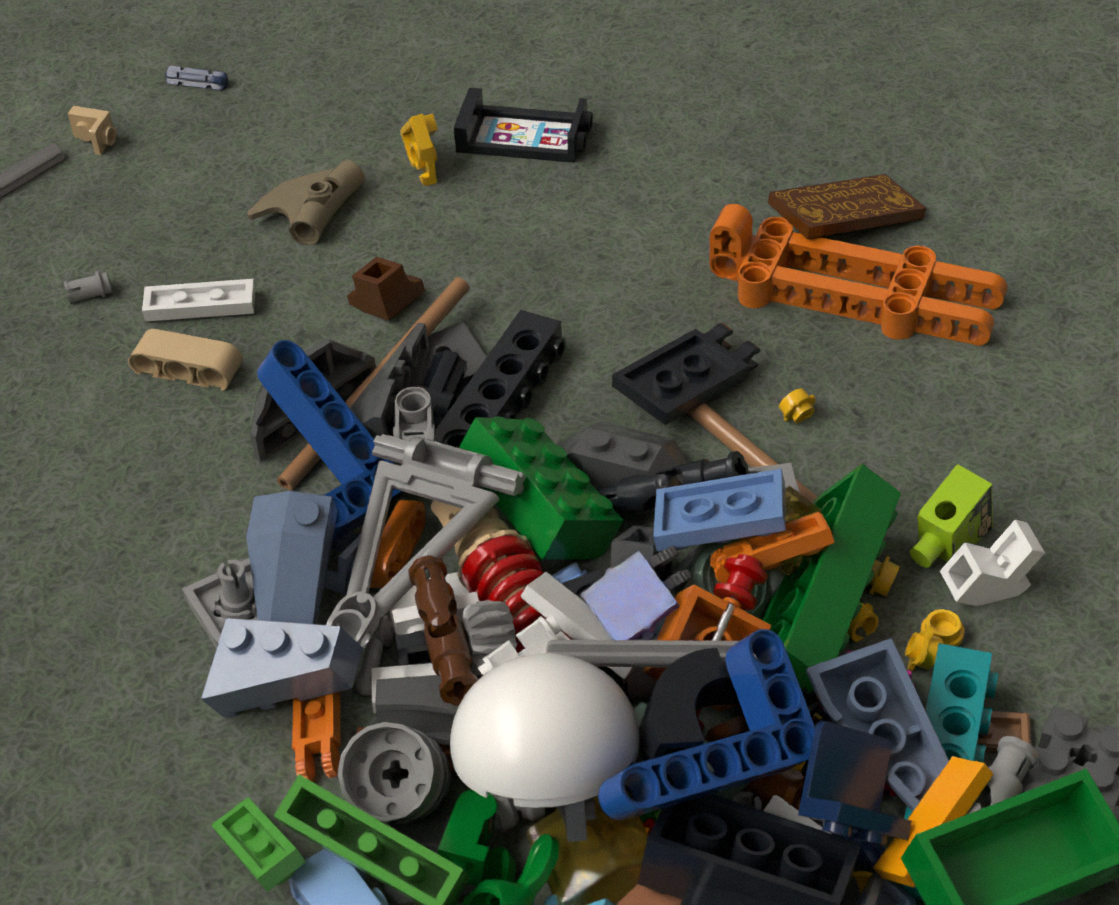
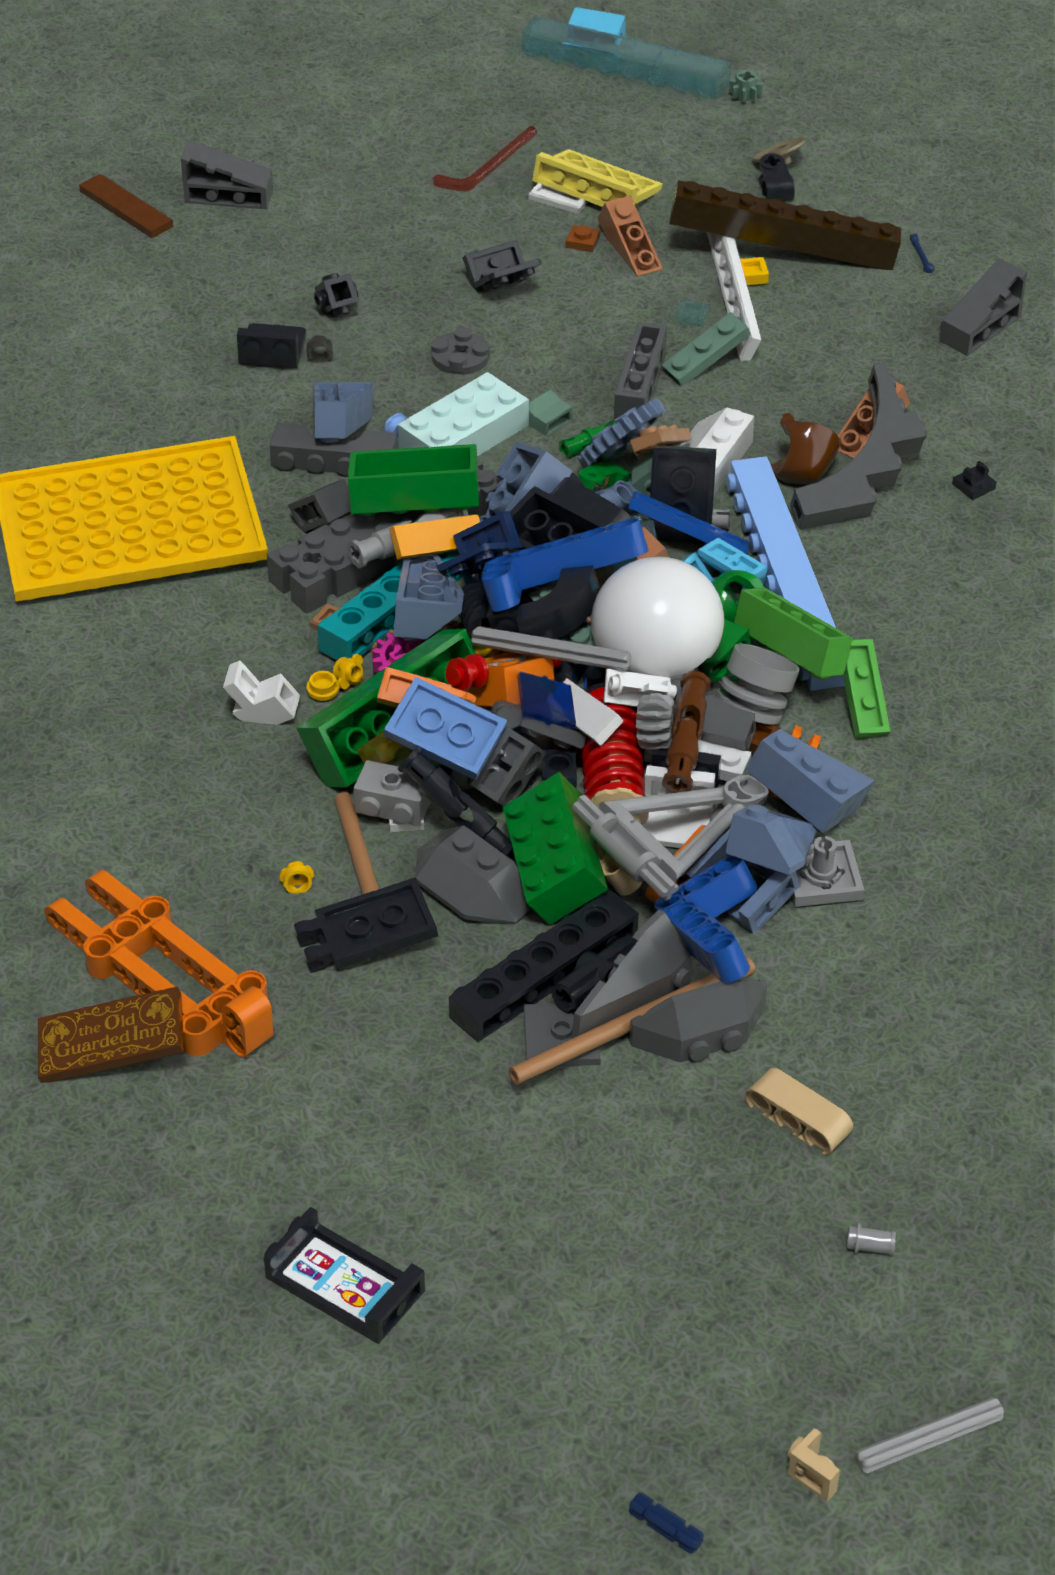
camera: 160 degrees left, 0 degrees up
(198, 300) = (764, 1179): white plate -> none
(311, 200) = (609, 1260): dark tan pin -> none
(384, 288) = (584, 1112): reddish brown brick -> none
(414, 415) = (628, 915): light grey piece -> none
(419, 146) = (465, 1267): yellow plate -> none
(953, 515) = (259, 731): lime torso -> none

